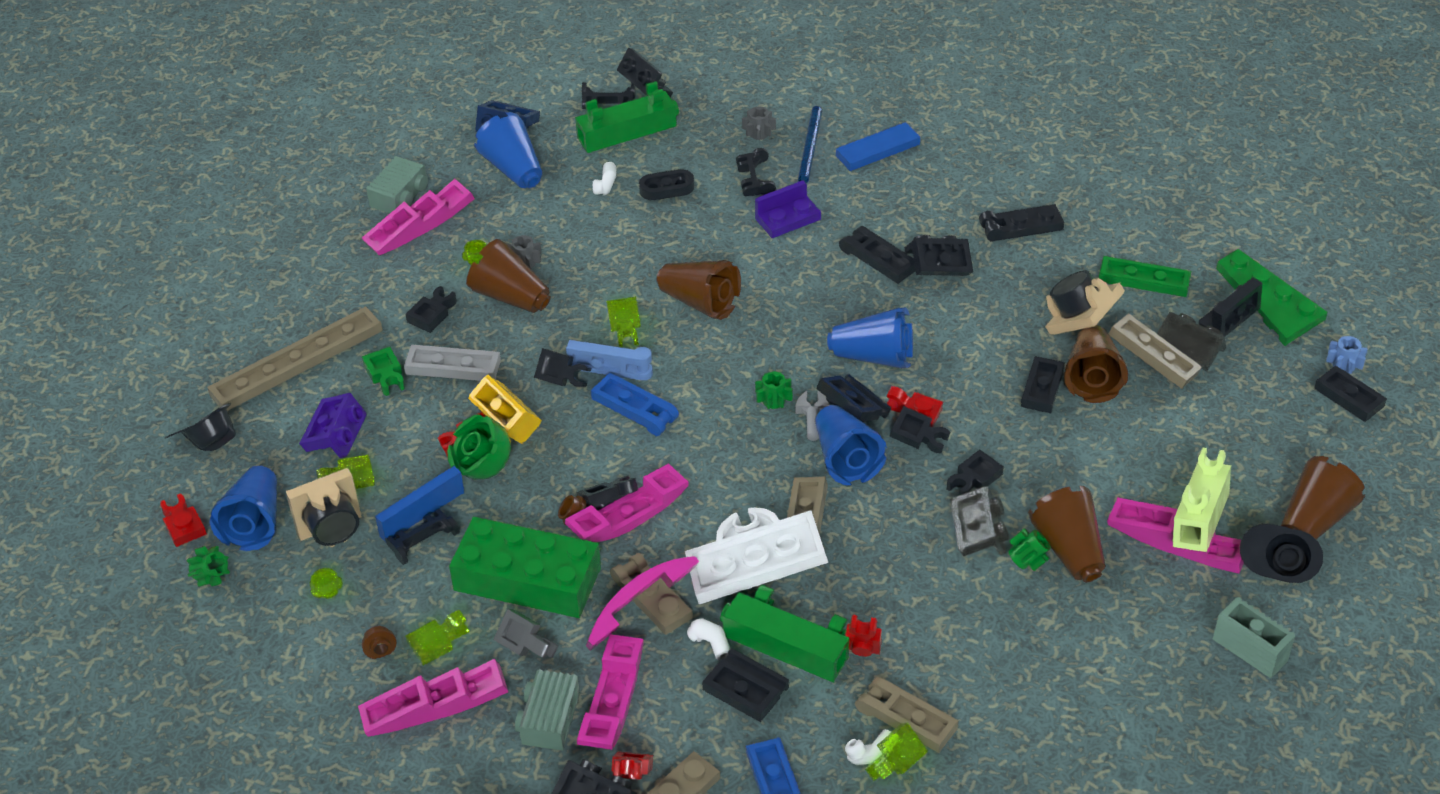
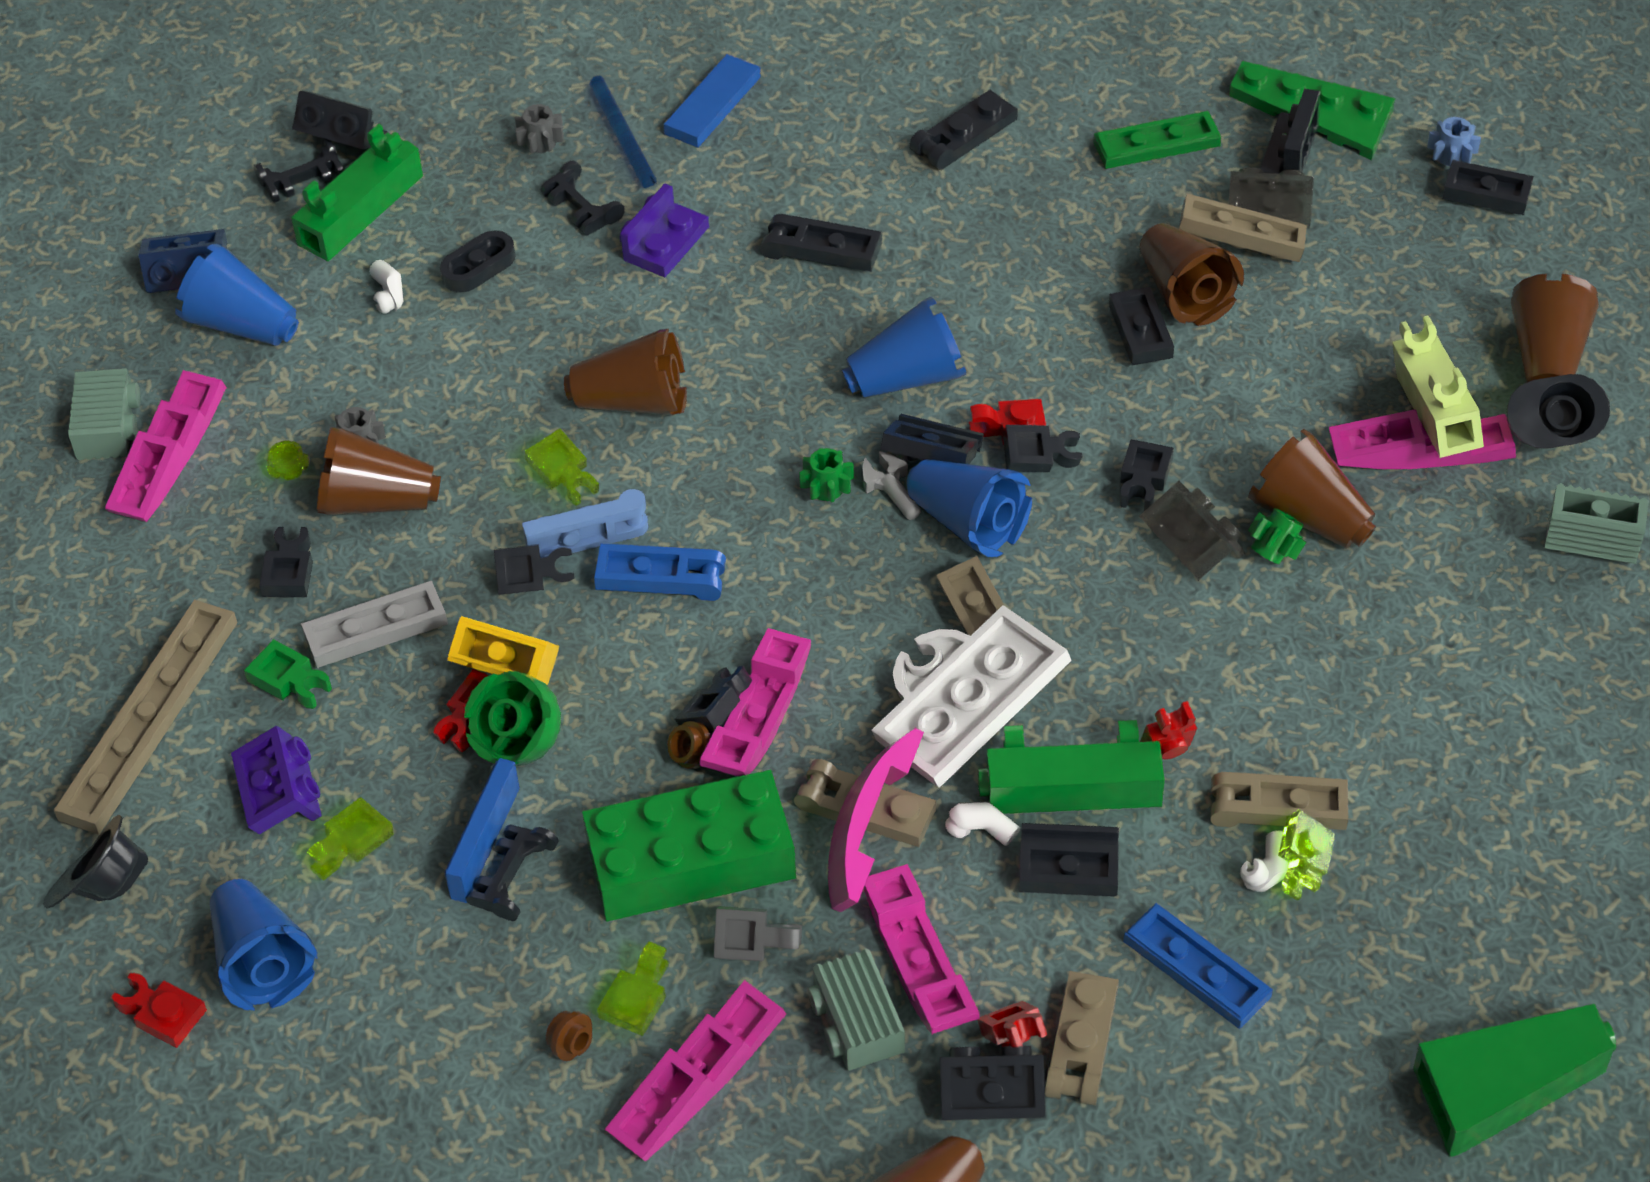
camera: 30 degrees left, 5 degrees up
(208, 566) = (257, 1049): green gear -> none
(325, 577) = (428, 985): clear neon green plate -> none
(330, 514) = (374, 893): piece -> none
(940, 255) = (905, 212): black bracket -> none
(1080, 302) = (1124, 198): piece -> none

